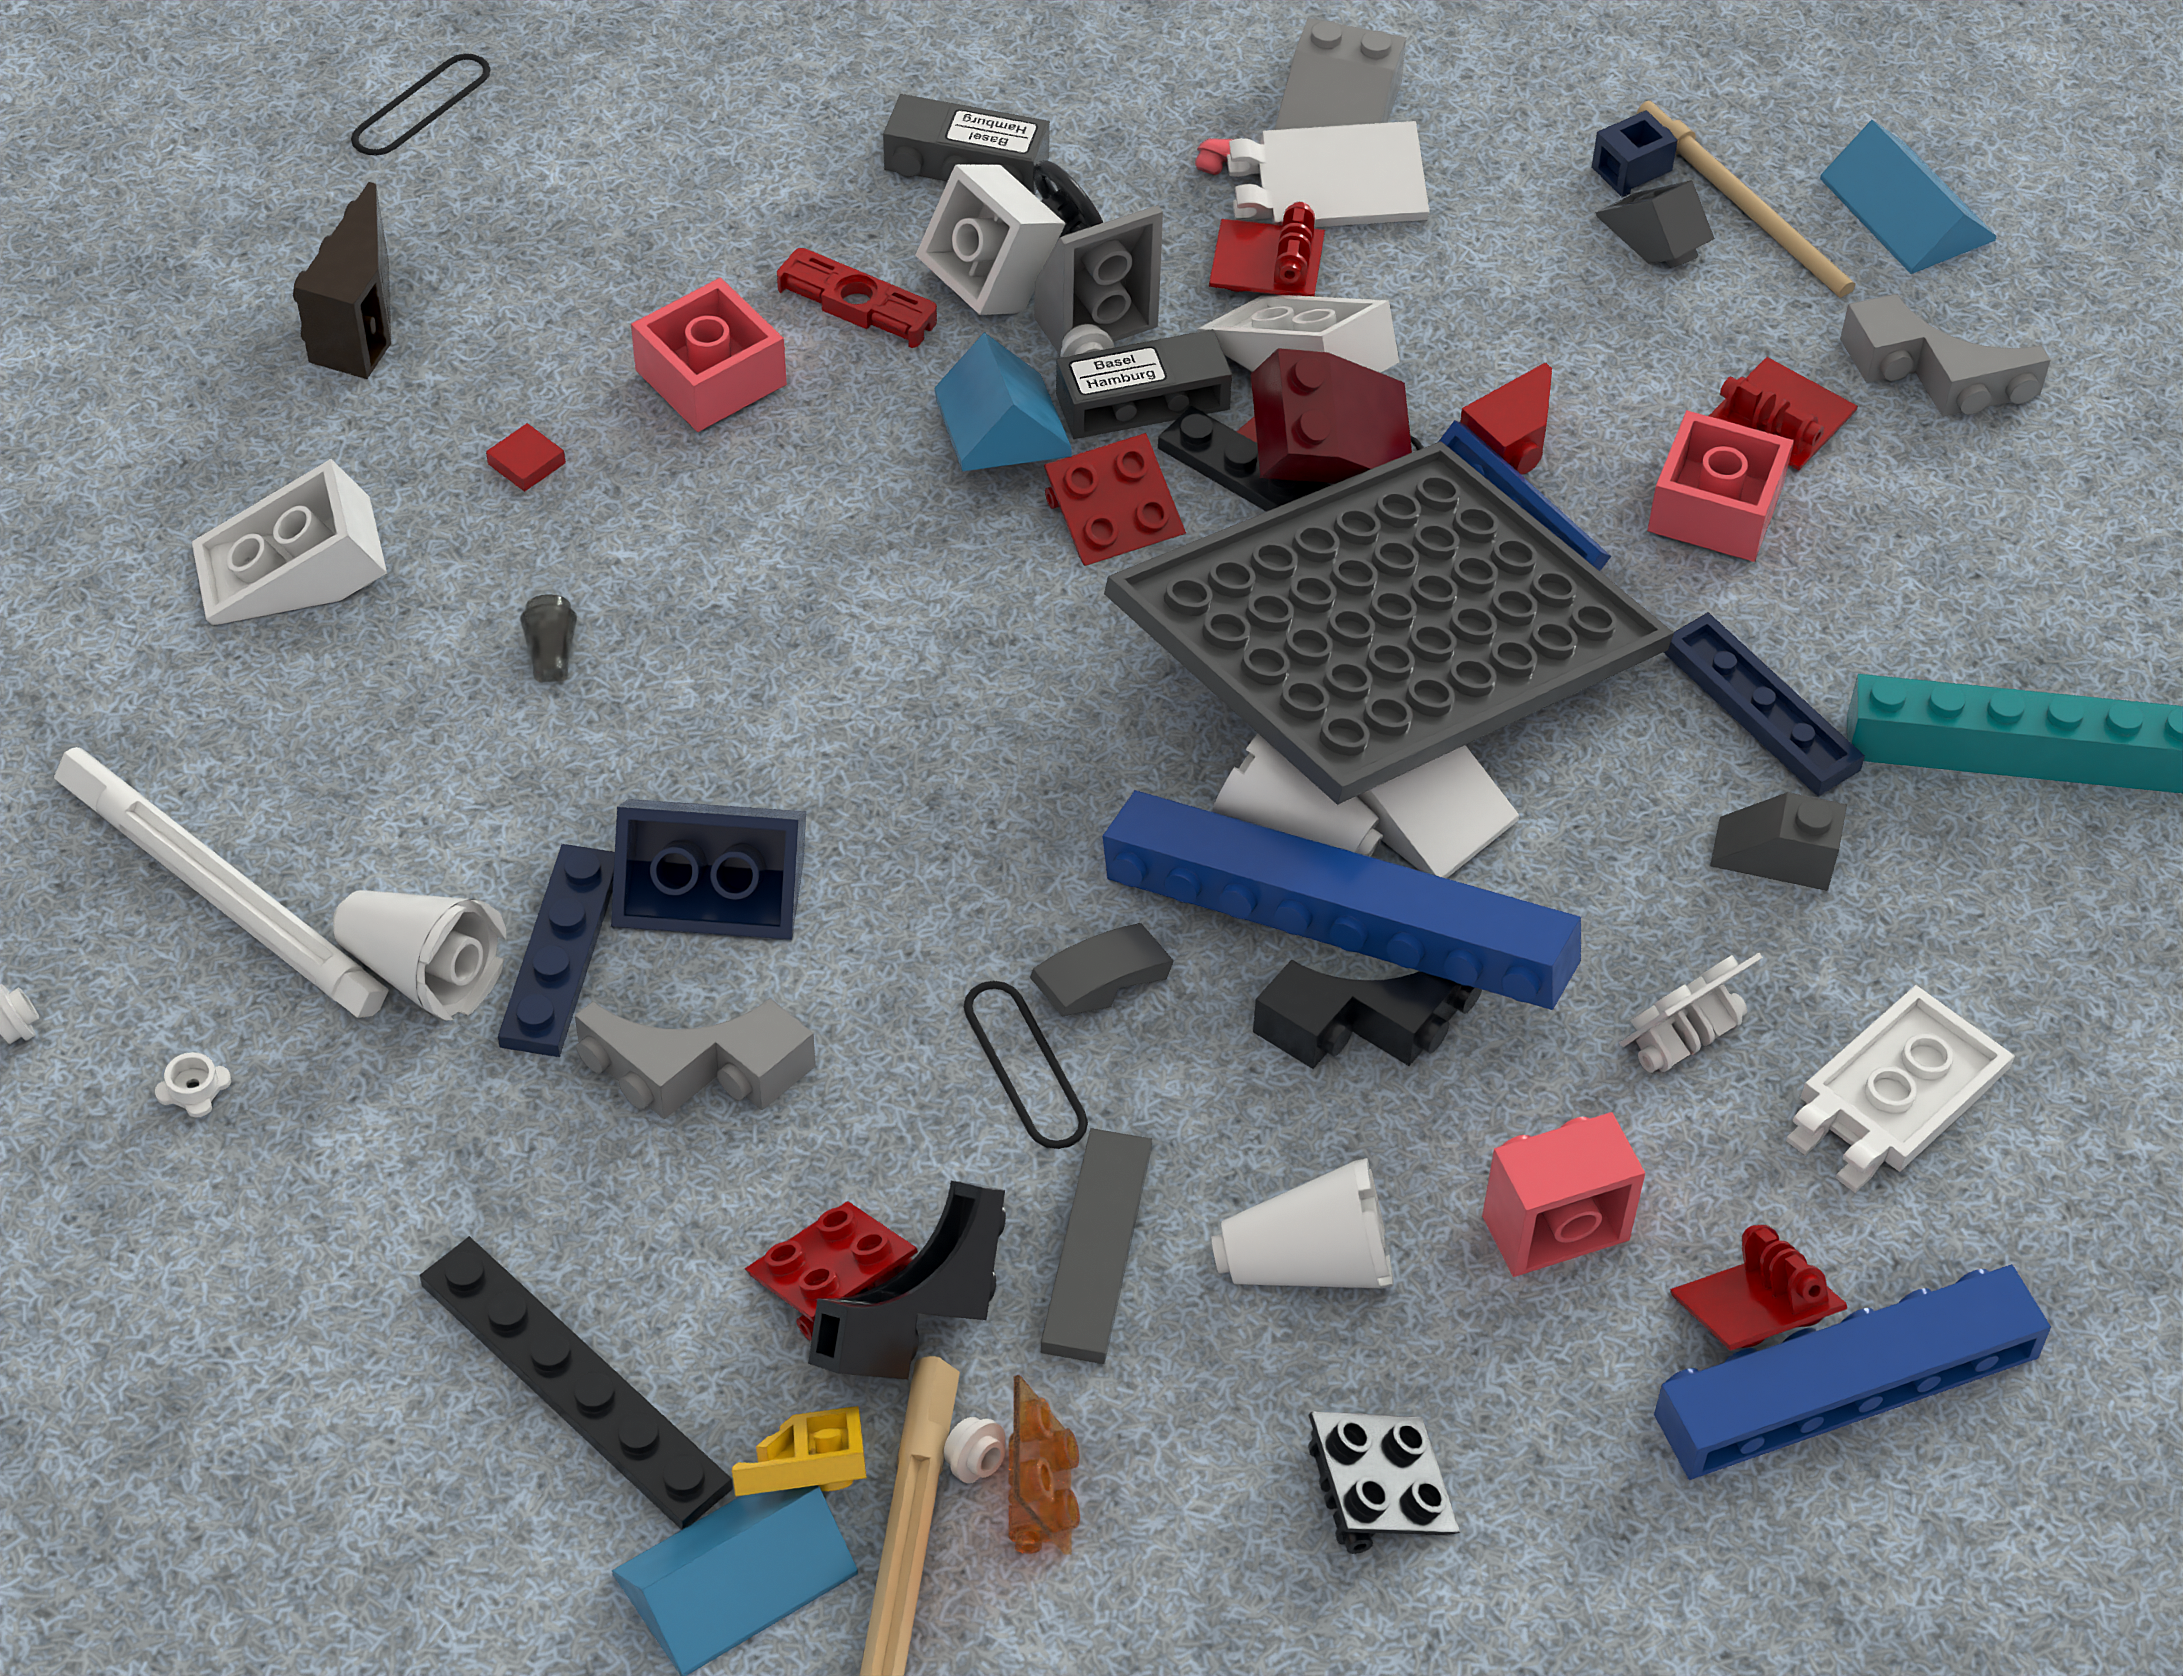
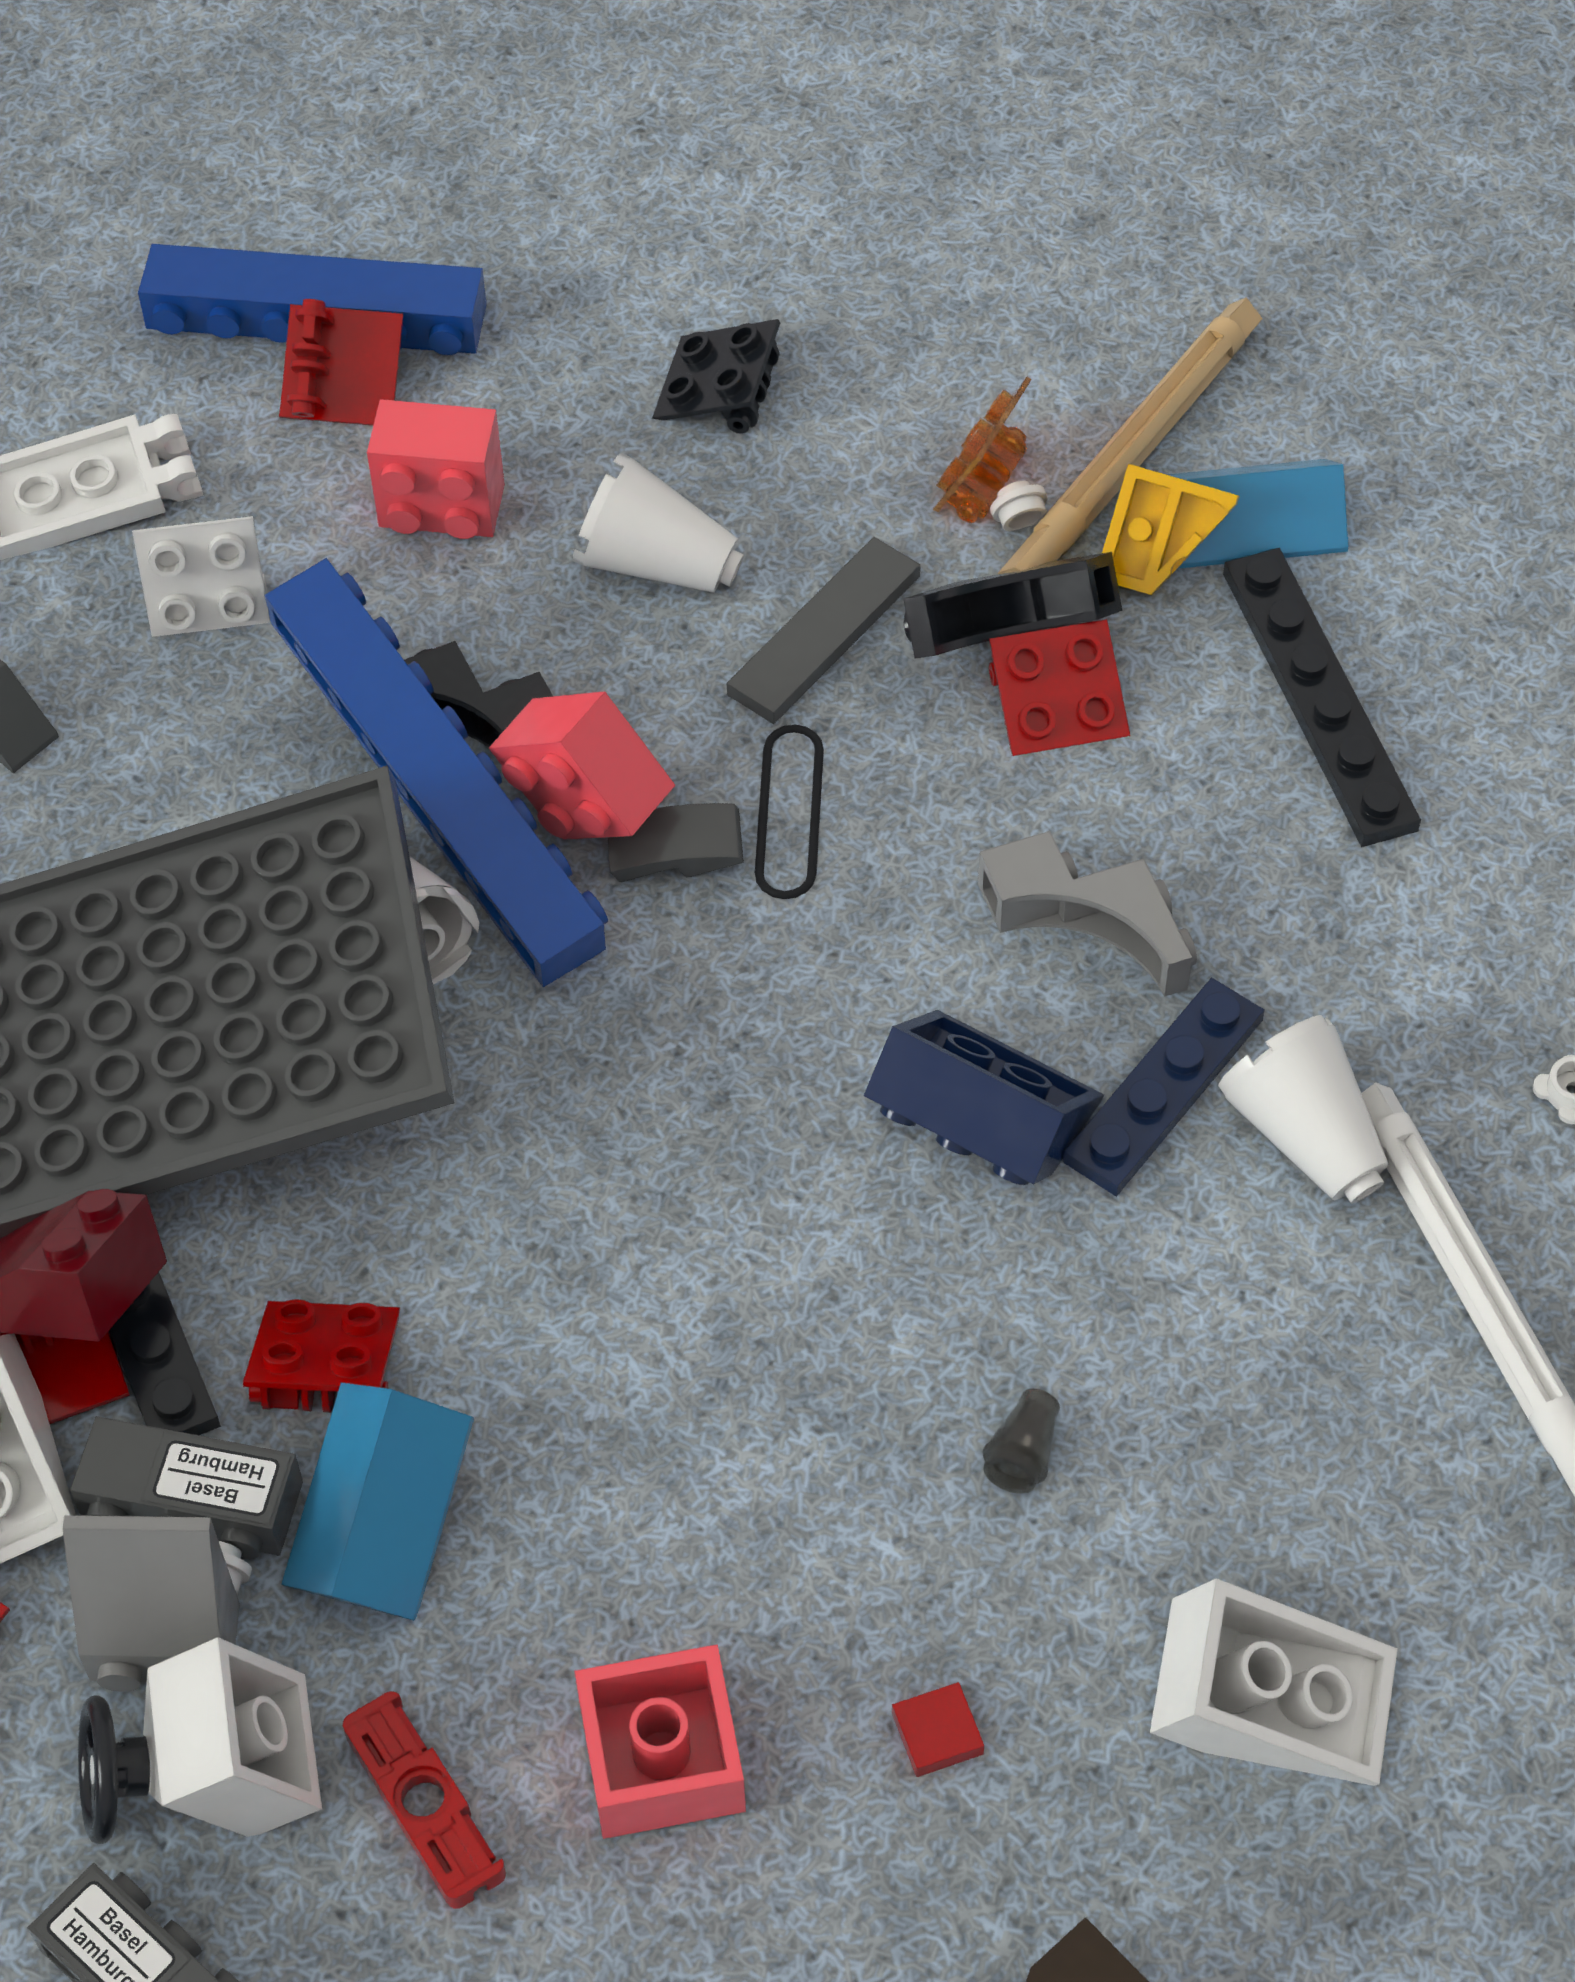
camera: 150 degrees left, 5 degrees up
(1206, 937) = (581, 766): none -> coral brick

